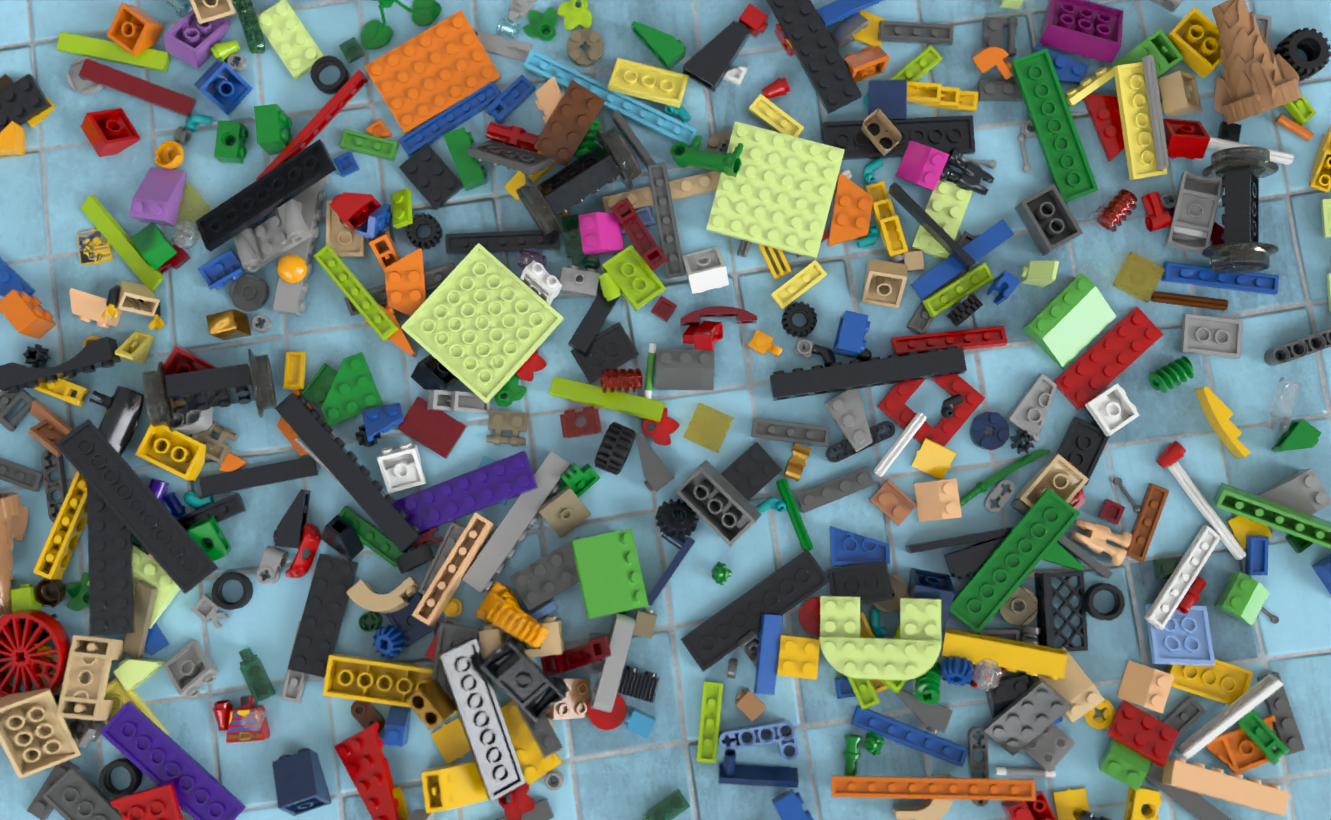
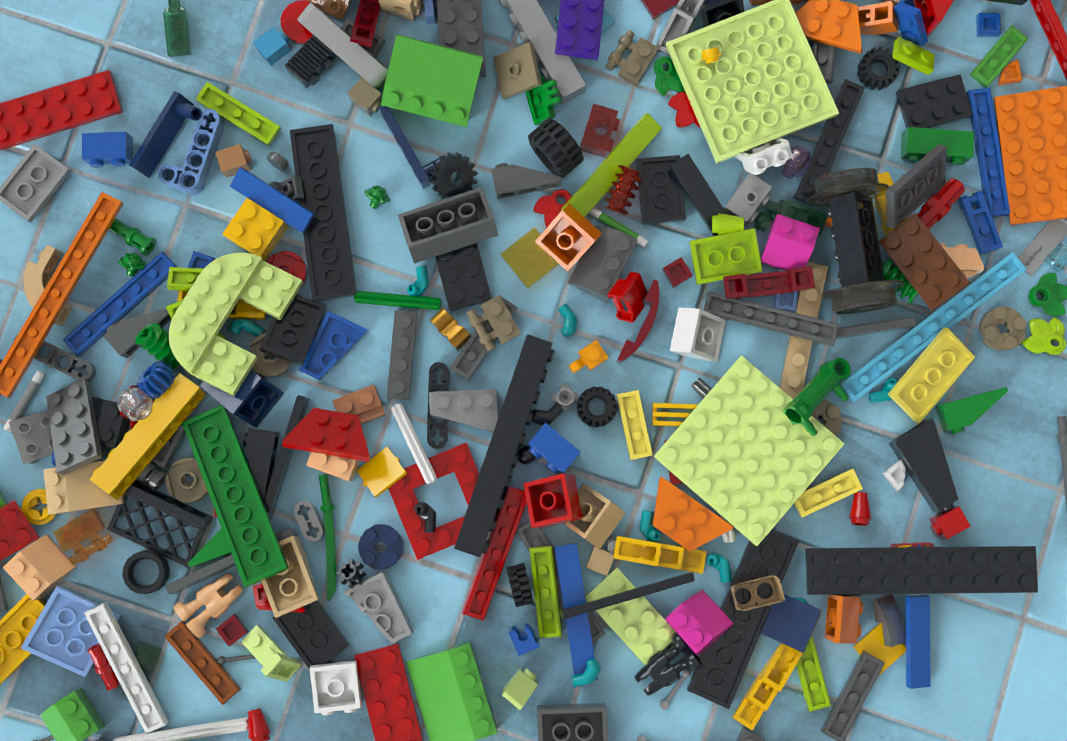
camera: 115 degrees right, 0 degrees up
(481, 362) = (711, 55): none -> yellow plate
(681, 403) = (568, 237): none -> orange brick
(744, 371) = (570, 322): none -> teal arm
(772, 424) = (499, 319): none -> dark tan plate
(890, 315) = (553, 500): none -> red brick
(928, 510) = (329, 434): none -> red wing
(1003, 226) = (590, 674): none -> teal arm
(1101, 671) = (80, 529): none -> clear orange plate
(1114, 472) = (274, 660): none -> yellowish green bracket

